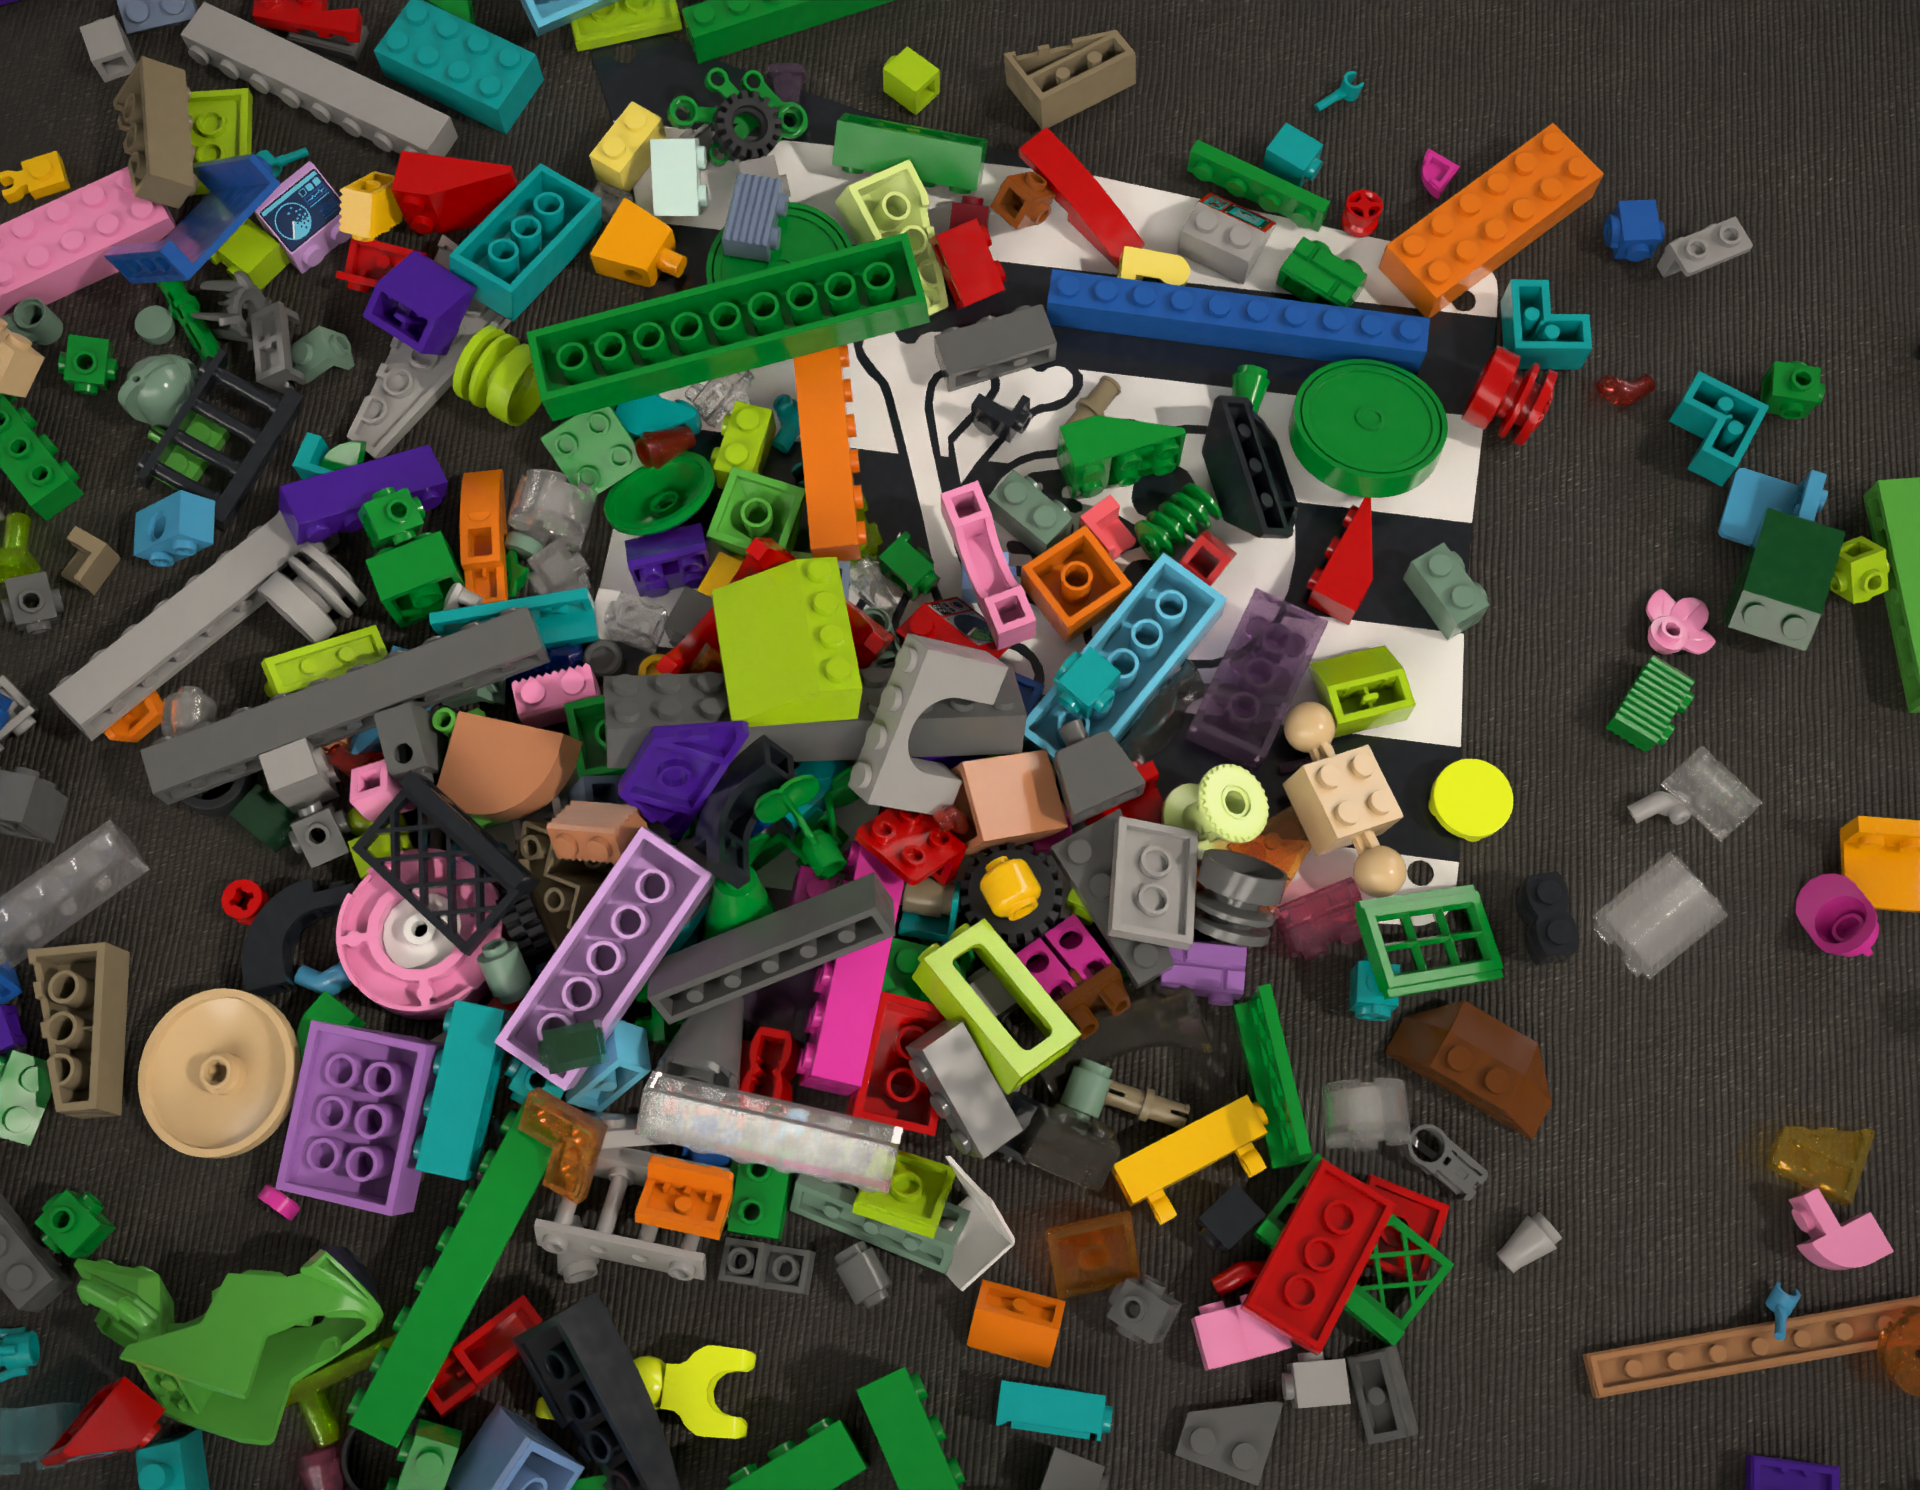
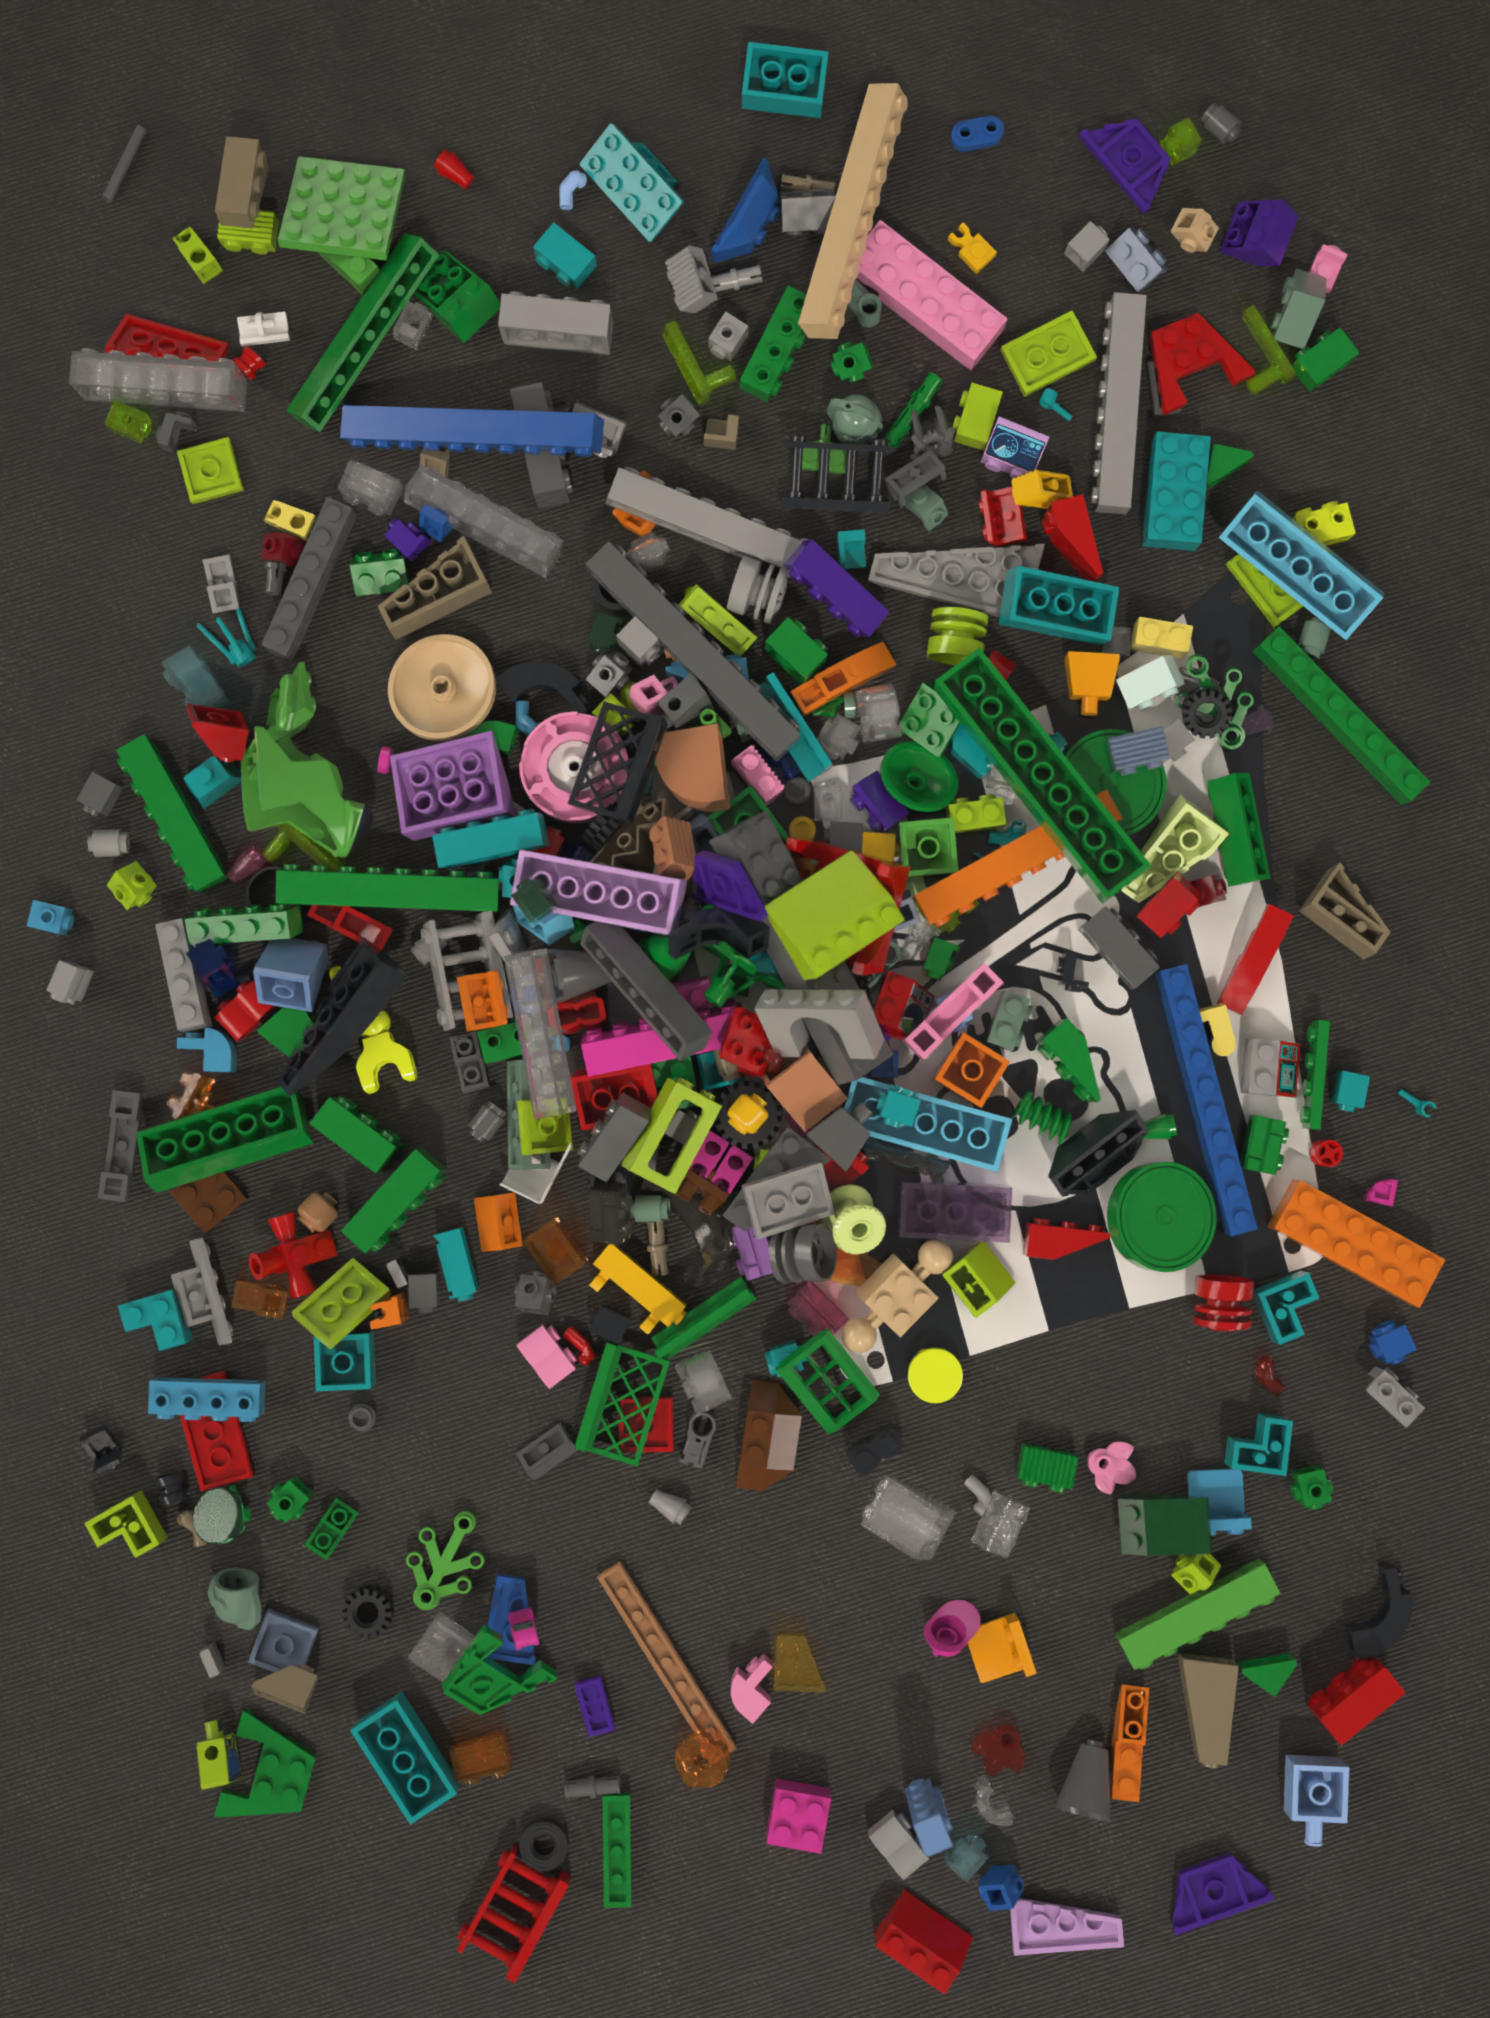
camera: 60 degrees right, 15 degrees up
(74, 1224) = (325, 656): green brick -> none
(155, 325) = (901, 386): sand green tile -> none
(158, 132) = (1029, 321): dark tan wedge -> none
(174, 528) = (762, 479): dark azure brick -> none
(236, 191) = (971, 392): blue panel -> none
(254, 900) = (554, 652): red wheel -> none
(345, 455) = (858, 561): tile -> none
(346, 760) = (658, 669): clear red arm -> none
(392, 517) = (820, 610): green brick -> none
(420, 304) = (980, 560): dark purple slope -> none
(459, 596) = (794, 684): light grey bar -> none
(505, 970) = (569, 831): sand green brick -> none
(574, 1141) = (488, 919): clear orange plate -> none
(662, 446) = (951, 763): clear red cone -> none
(911, 80) = (1297, 804): lime brick -> none
(1023, 200) = (1234, 921): dark orange brick -> none
(1097, 400) = (1101, 1028): dark tan pin -> none
(1107, 527) = (1019, 1074): coral panel -> none
(1207, 557) = (1024, 1147): red brick -> none
(1230, 1439) = (485, 1373): dark grey wing -> none
(1316, 1382) = (536, 1410): light grey brick -> none
(1319, 1256) = (607, 1385): red tile -> none
(1446, 590) = (1069, 1309): sand green brick -> none
(1782, 1306) = (696, 1668): dark azure hand -> none

